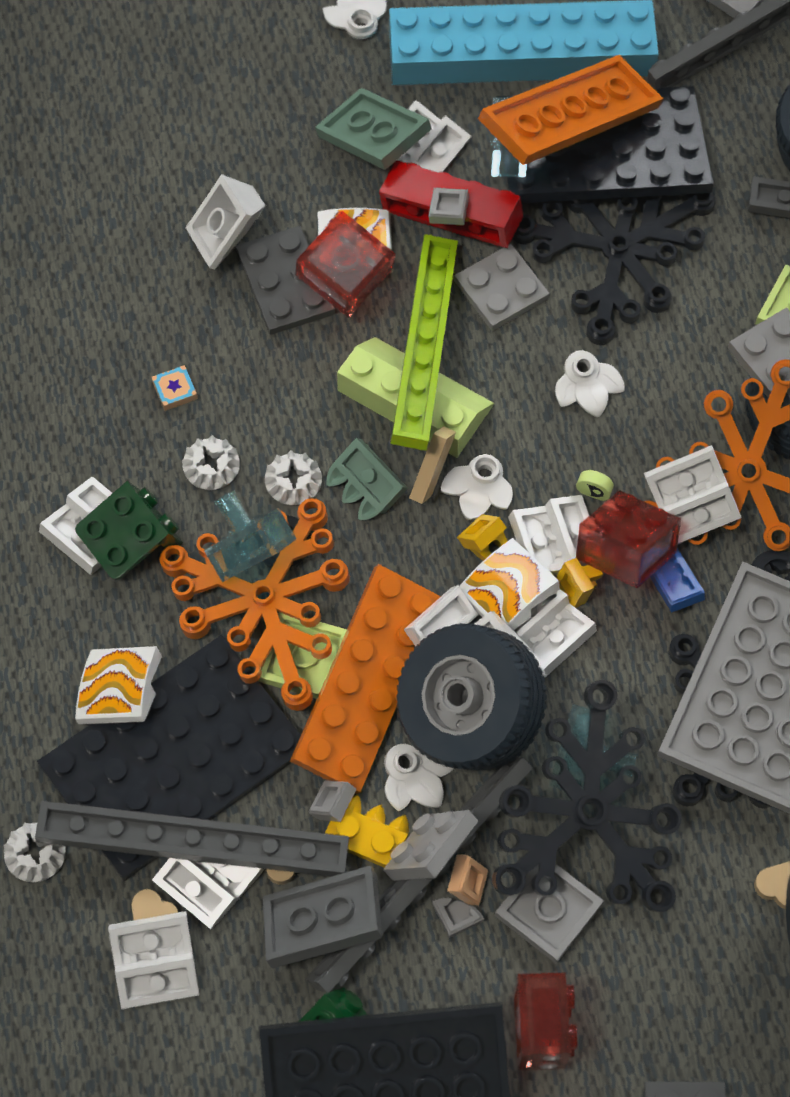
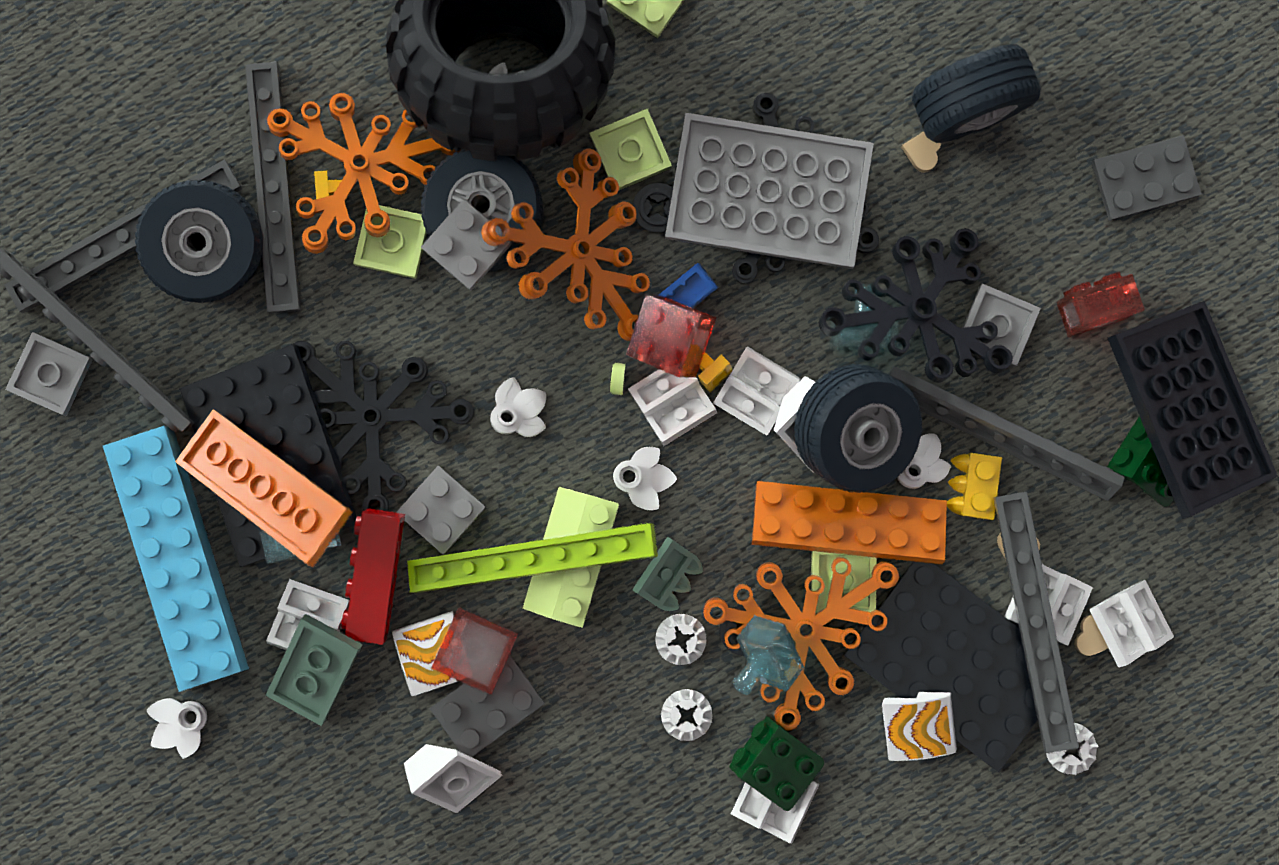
camera: 105 degrees left, 20 degrees up
(174, 388) = (623, 770): light nougat tile -> none
(322, 917) = (1067, 499): dark grey plate -> none
(332, 800) = (963, 520): light grey tile -> none
(430, 845) = (986, 428): light grey plate -> none
(432, 465) = (639, 518): tan tile -> none
(447, 610) = (783, 474): white tile -> none
(448, 206) = (389, 574): light grey tile -> none
(456, 915) = (1022, 396): light grey tile -> none
(467, 880) = (996, 394): light nougat tile -> none
(482, 533) = (692, 461): yellow tile -> none
(509, 584) = (736, 427): slope -> none
(695, 492) = (614, 290): white slope -> none

